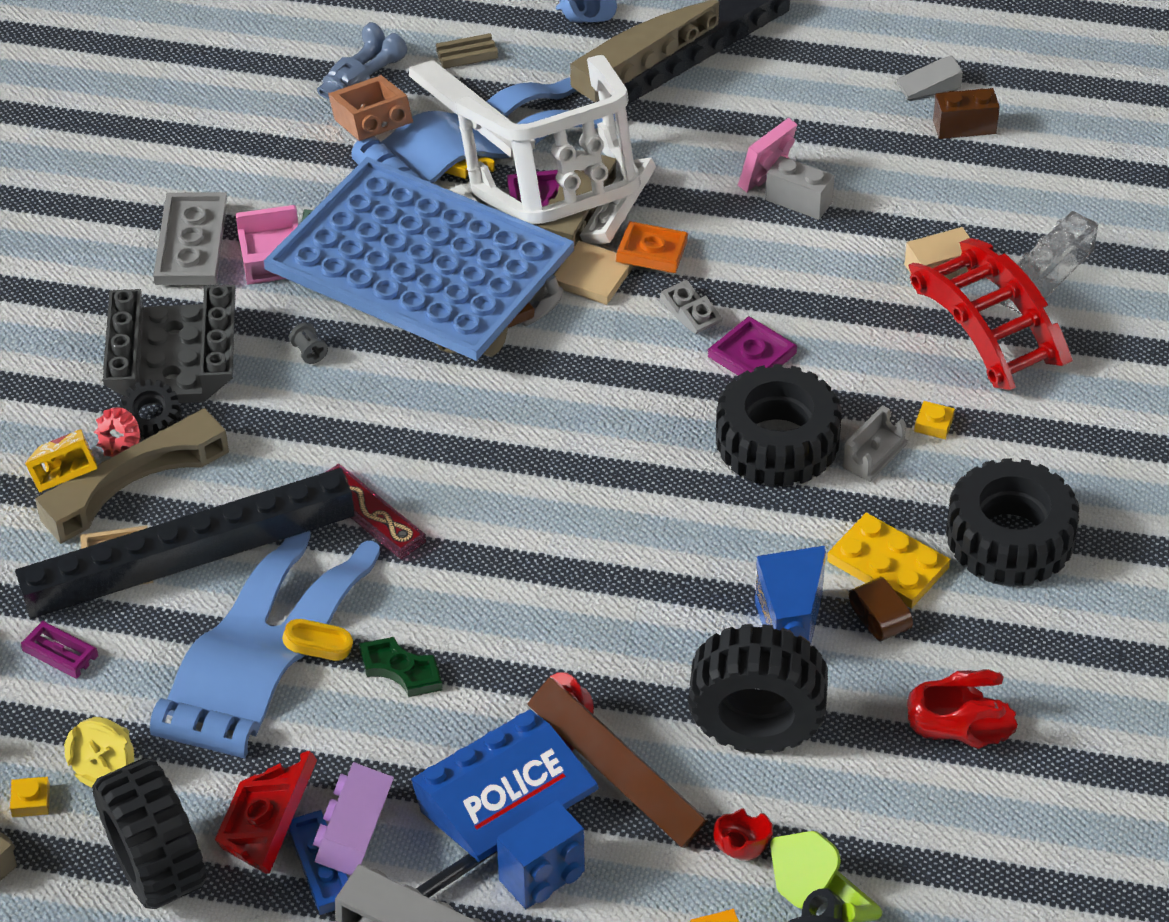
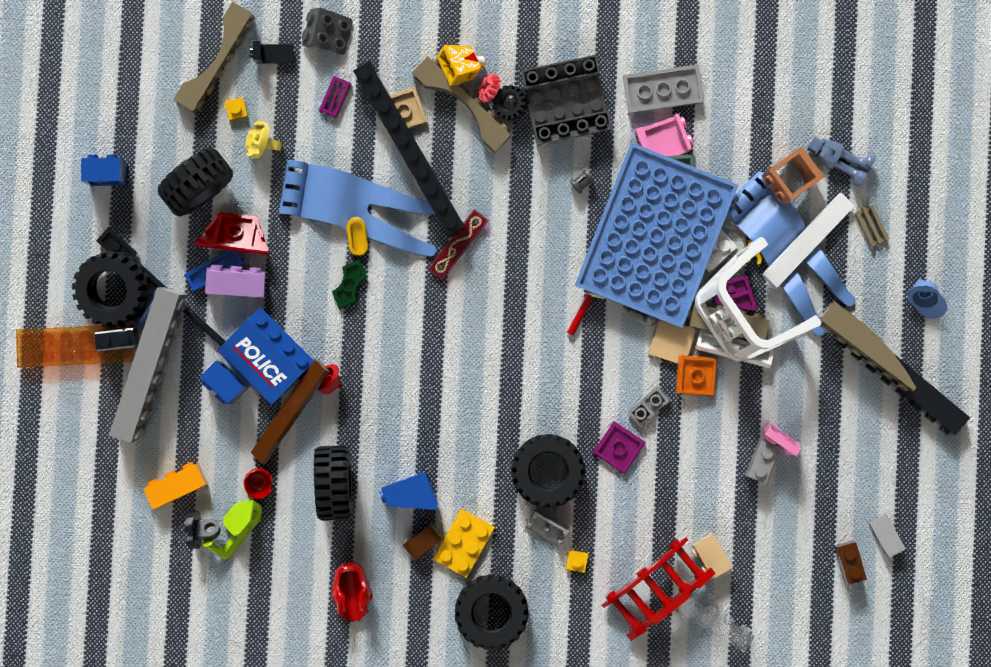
camera: 80 degrees right, 40 degrees up
(523, 372) = (580, 314): none -> red bar

